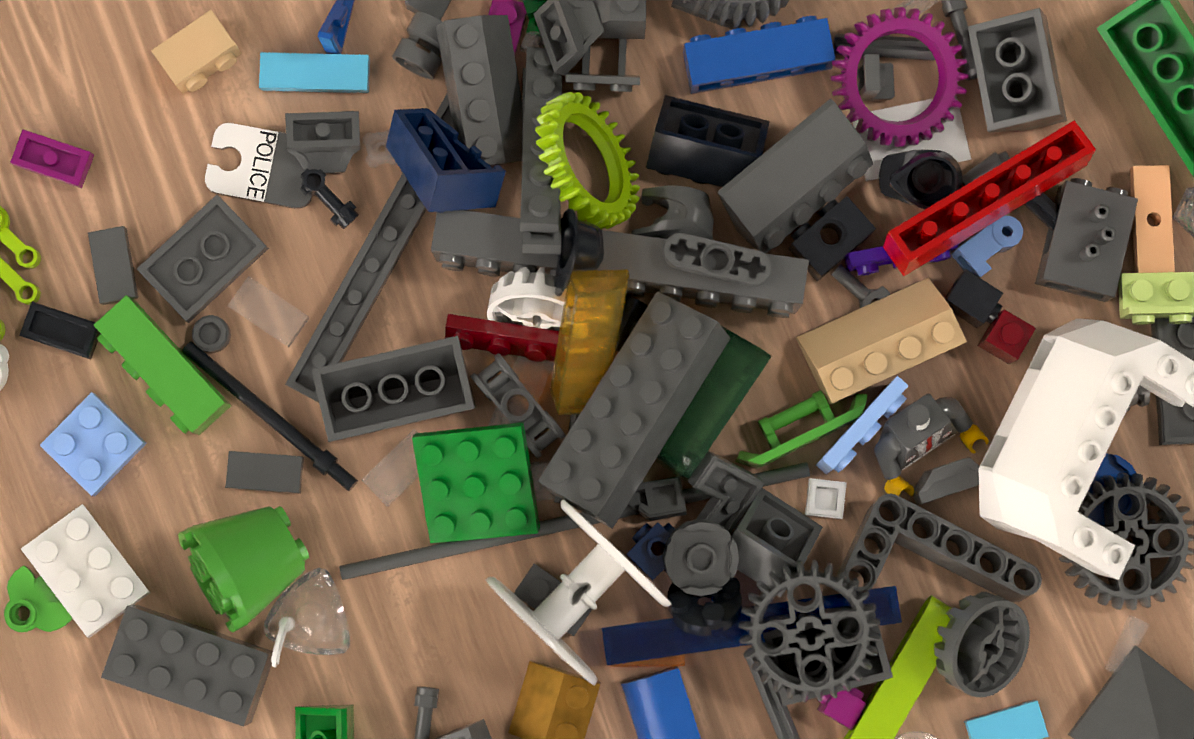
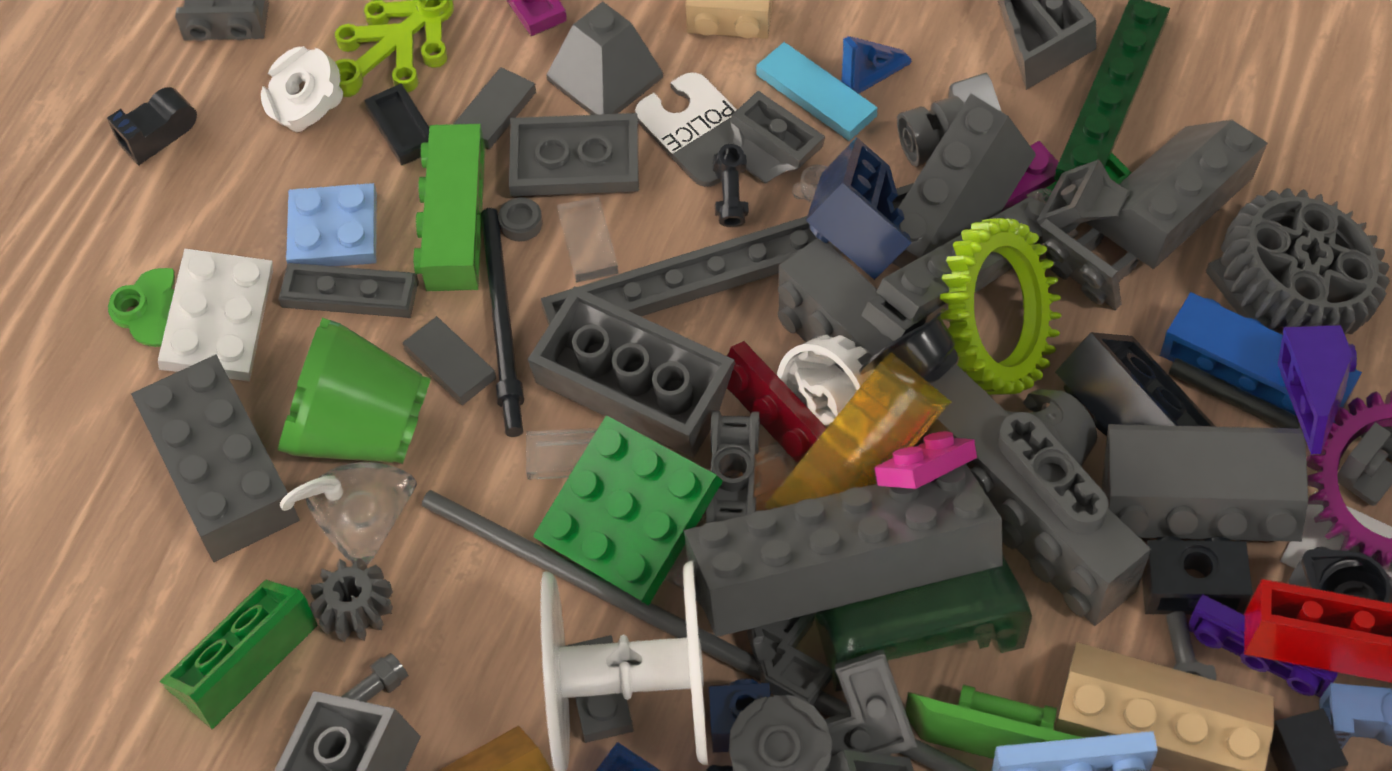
camera: 45 degrees right, 25 degrees down
(150, 479) = (348, 290): none -> dark grey tile
(157, 173) = (604, 63): none -> dark grey slope
(362, 689) = (358, 613): none -> dark grey gear
(641, 318) = (924, 463): none -> dark pink plate
(759, 88) = (1233, 395): none -> pearl dark grey bar
(808, 49) = (1316, 374): none -> dark purple slope

